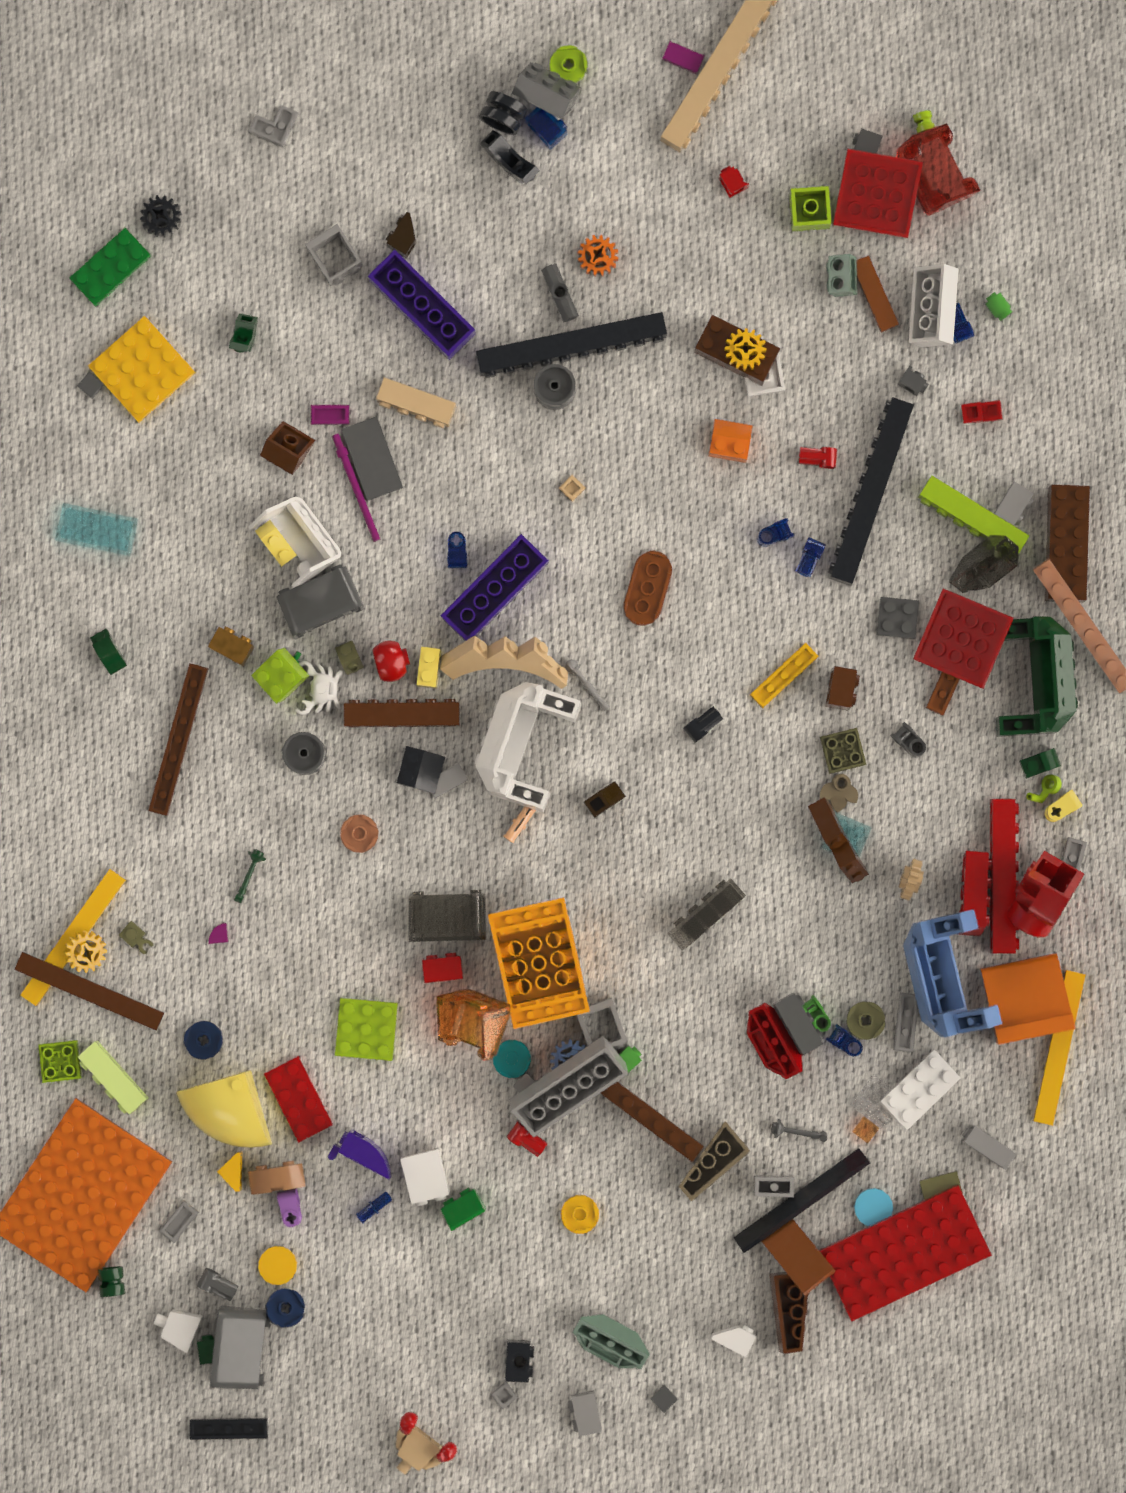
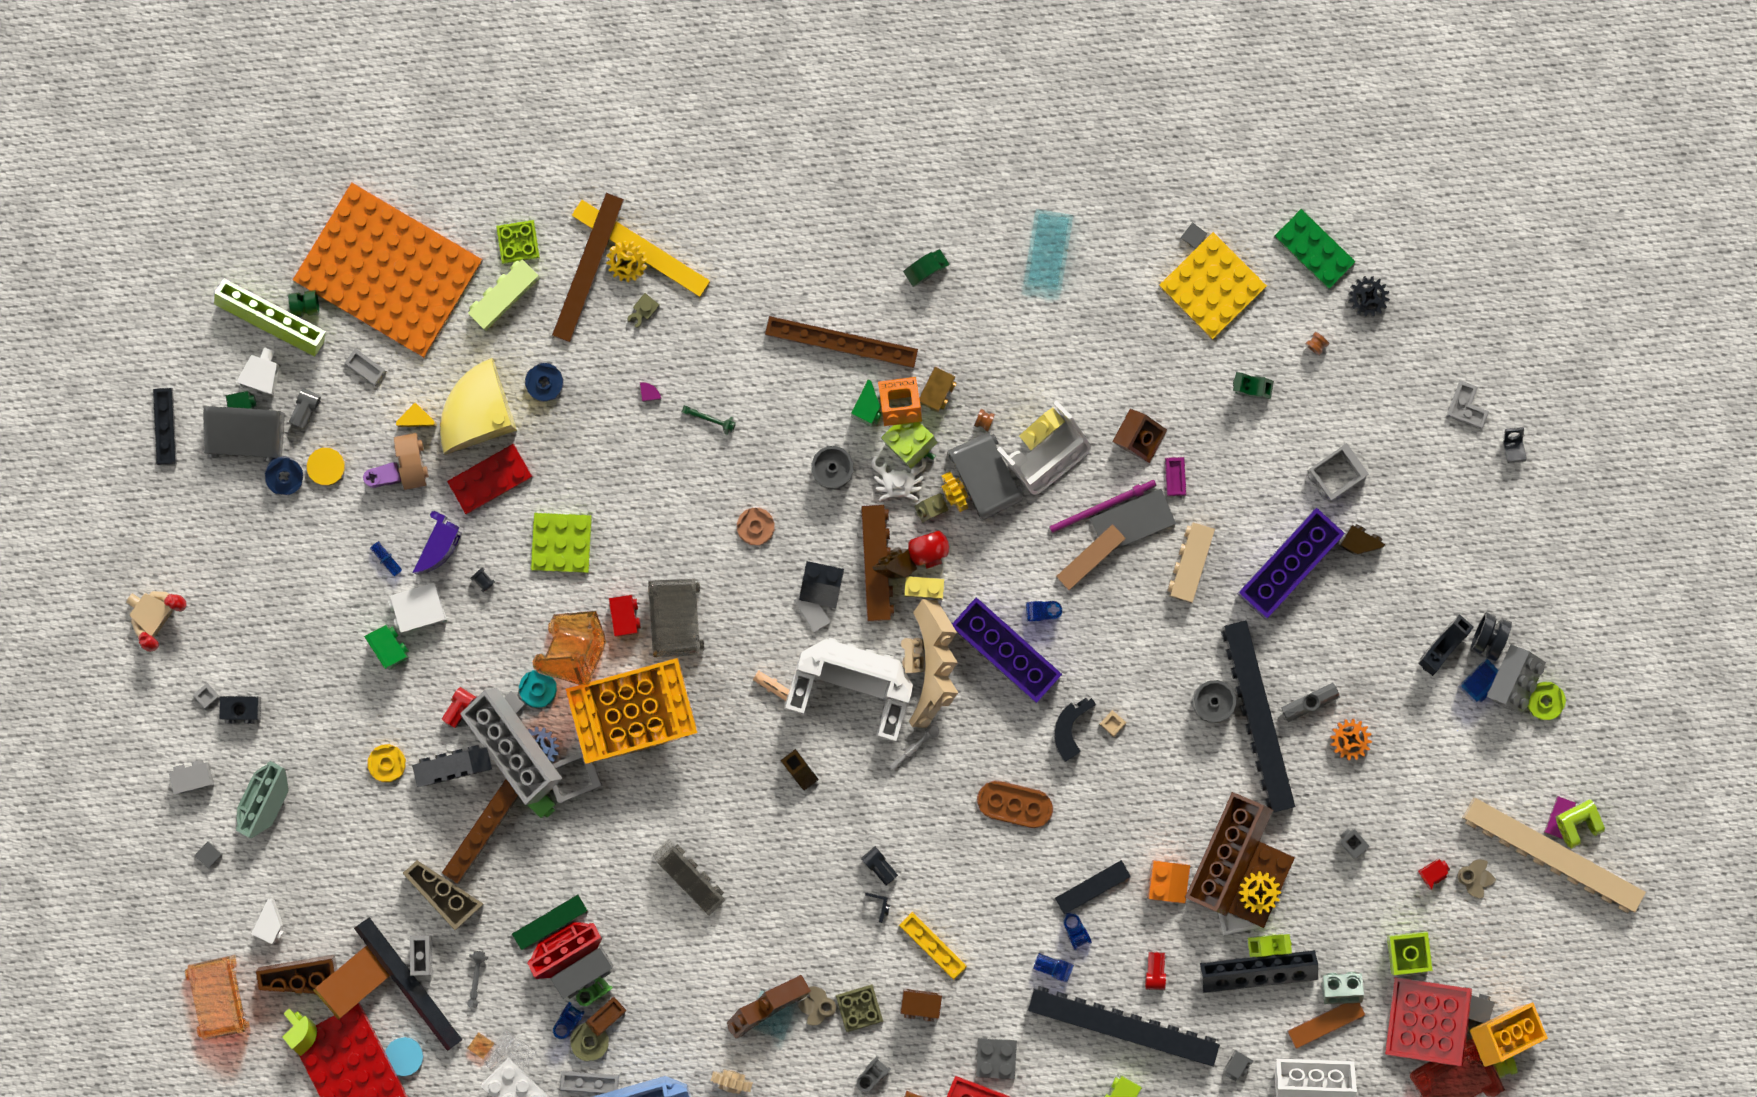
camera: 85 degrees right, 0 degrees up
(123, 1317) = (269, 317): none -> lime brick
(204, 268) = (1317, 343): none -> dark orange wheel
(228, 682) = (900, 389): none -> orange window
(244, 714) = (867, 406): none -> green slope
(264, 600) = (984, 420): none -> dark orange wheel
(316, 82) = (1514, 446): none -> black bracket
(334, 632) = (954, 491): none -> yellow gear
(400, 1110) = (482, 580): none -> black bush
(404, 693) = (896, 564): none -> dark brown slope
(406, 501) = (1090, 557): none -> medium nougat tile
(495, 679) = (913, 661): none -> tan plate
(578, 537) = (1063, 728): none -> black arch
(586, 1147) = (453, 766): none -> black wedge
(679, 32) = (1569, 819): none -> lime connector
(703, 252) = (1360, 844): none -> dark grey brick
(705, 379) = (1229, 853): none -> reddish brown brick
(732, 515) = (1092, 887): none -> black tile
(739, 139) = (1478, 877): none -> dark tan plate
(744, 720) = (885, 907): none -> black bracket
(745, 1055) = (549, 922): none -> dark green tile
(796, 344) = (1269, 945): none -> lime brick
(808, 1394) = (217, 998): none -> clear orange windscreen
(822, 355) = (1259, 971): none -> black brick
(841, 1003) = (605, 1016): none -> reddish brown tile
(847, 1308) = (302, 1033): none -> lime brick
(893, 115) = (1508, 1034): none -> light orange brick

